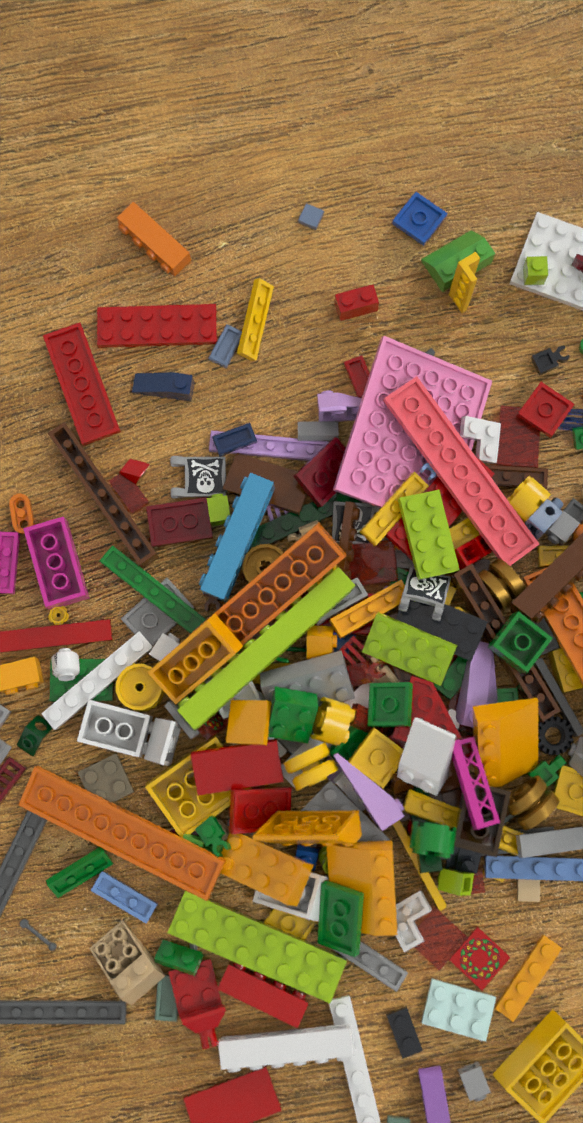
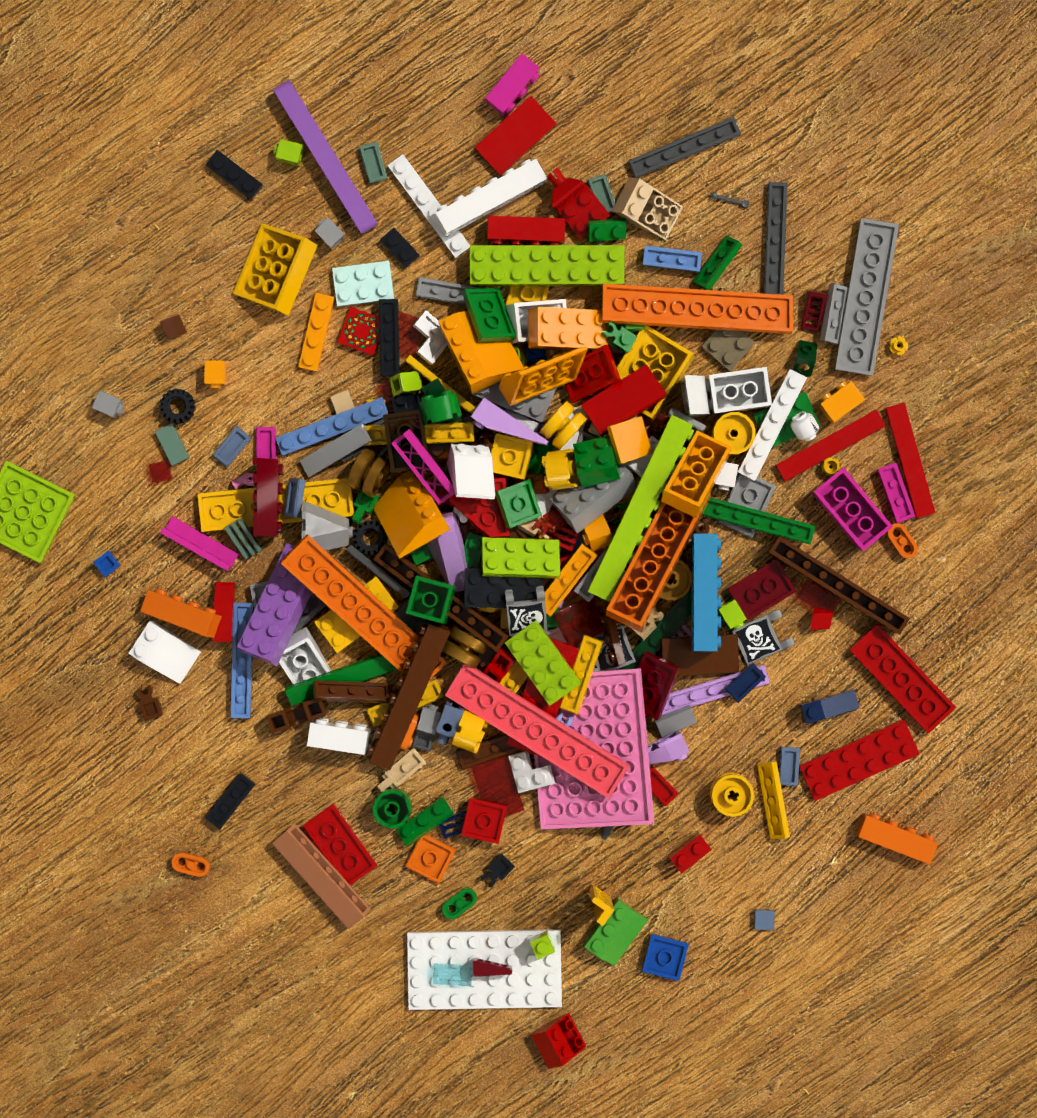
camera: 155 degrees right, 10 degrees up
(293, 339) = (742, 798): none -> yellow wheel
(453, 939) = (389, 337): none -> black tile
(552, 181) = (558, 1041): none -> red slope

